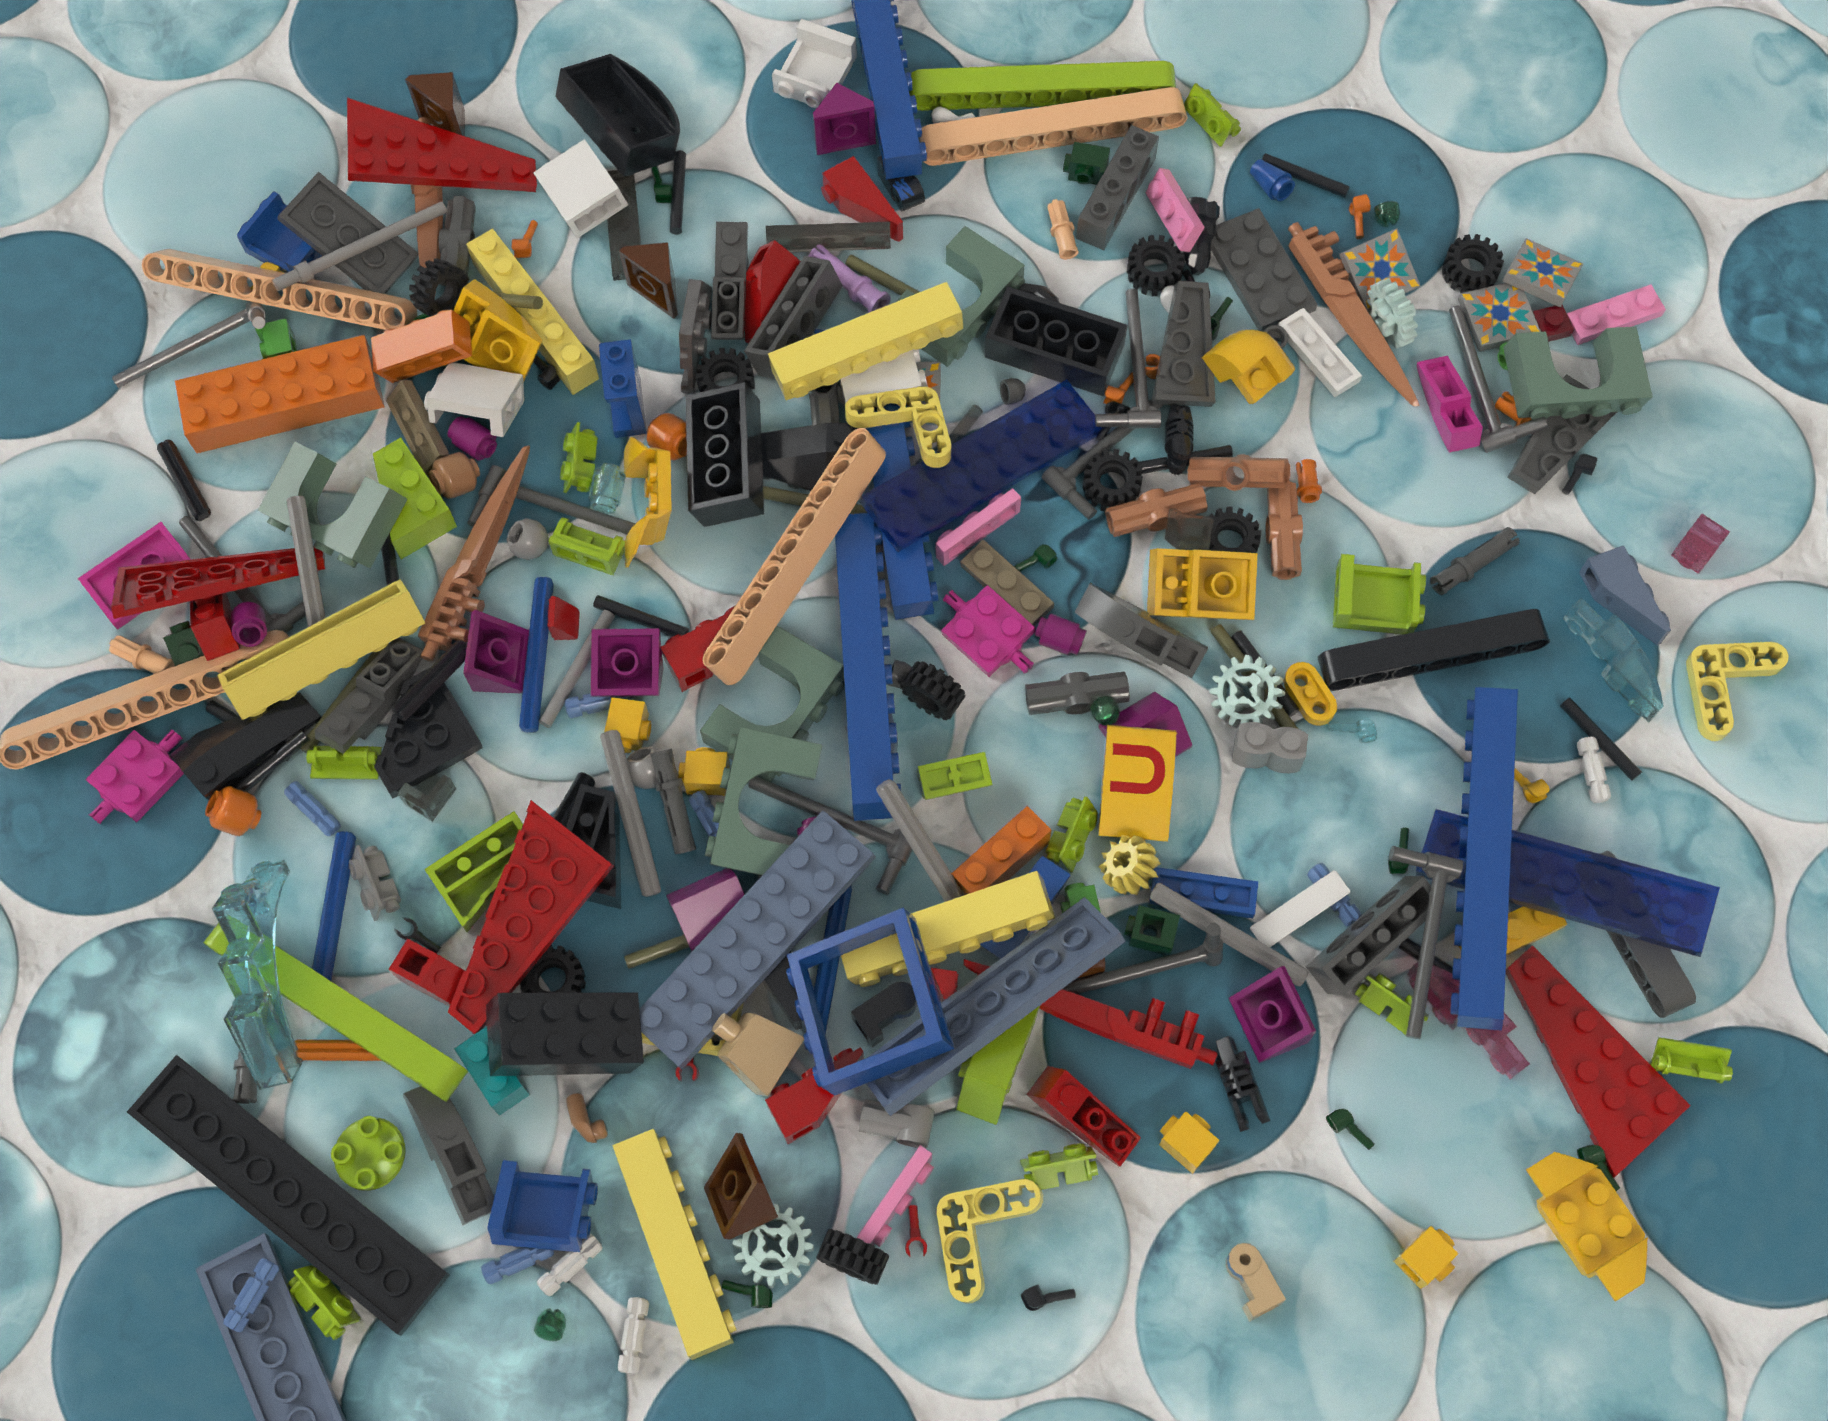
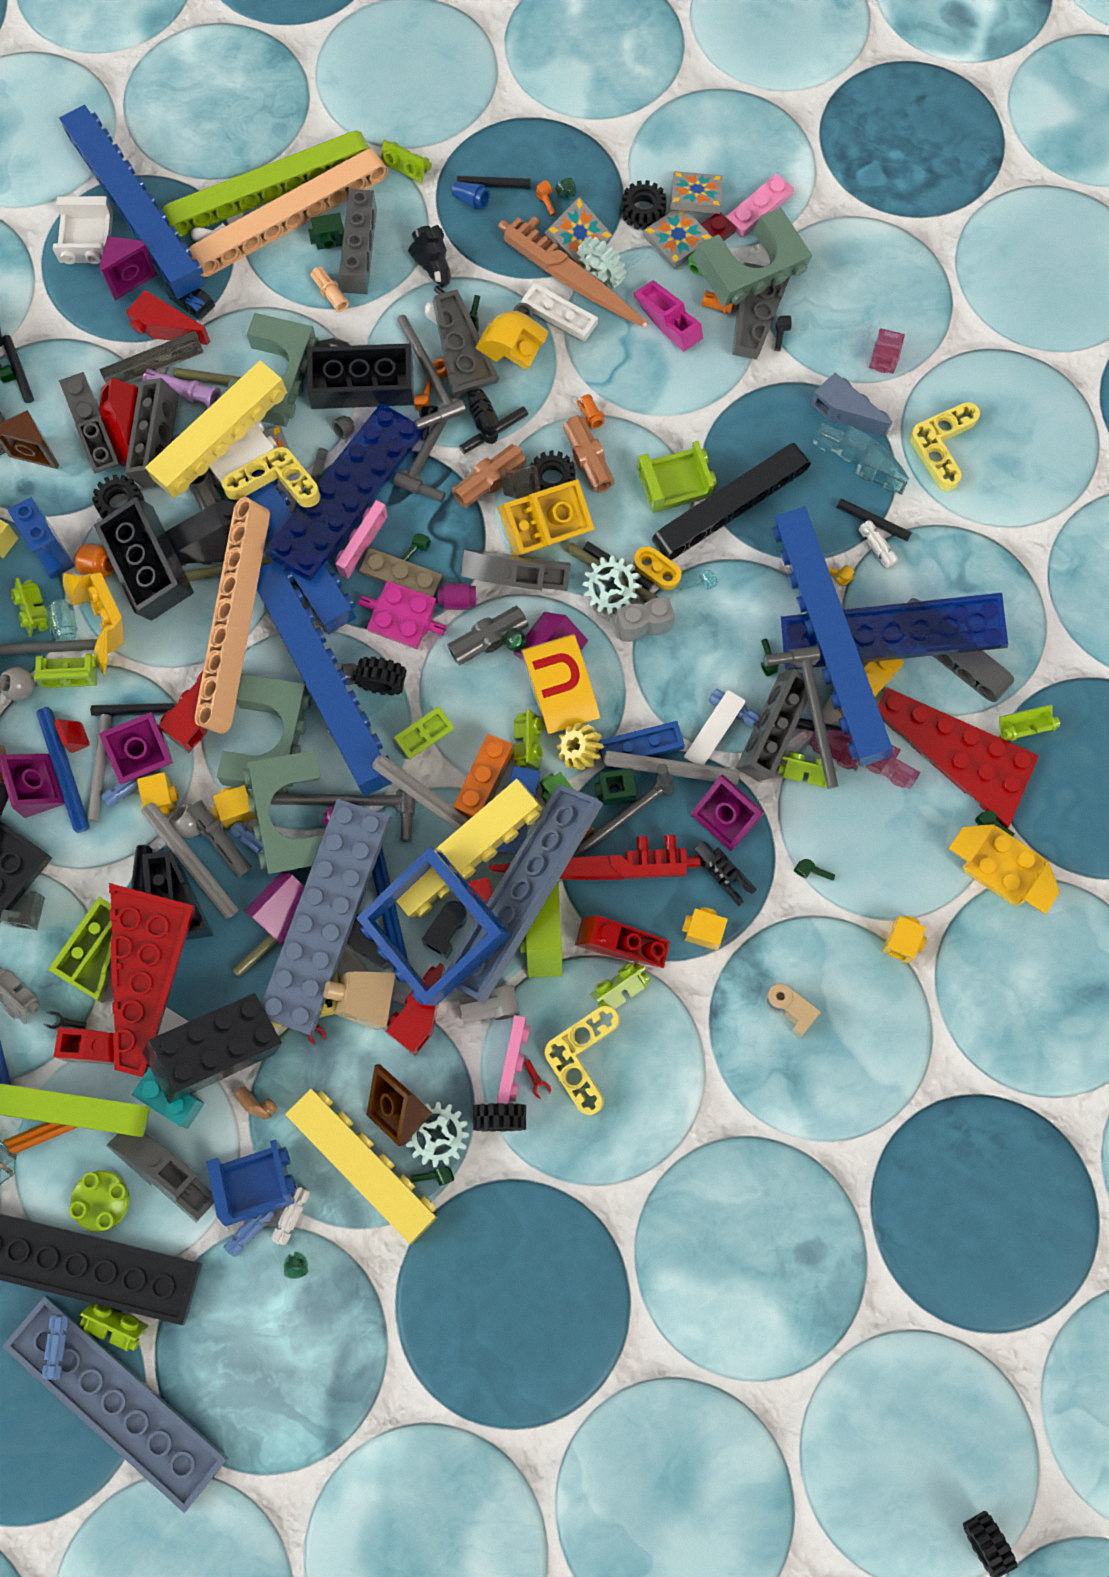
camera: 25 degrees left, 5 degrees up
(560, 959) = (185, 992): black tyre -> none
(633, 1335) = (361, 1246): white axle -> none
(694, 321) = (76, 465): flat silver wing -> none
(1034, 1298) = (643, 1089): black hand -> none
(1115, 464) = (442, 453): black tyre -> none
(1154, 250) = (406, 279): black tyre -> none
(1174, 210) = (408, 243): bright pink plate -> none
(1257, 472) = (554, 418): nougat piece -> none
(1260, 270) = (490, 266): dark grey plate -> none
(1463, 568) = (729, 432): dark grey pin -> none
(1497, 434) = (713, 324): flat silver bar -> none

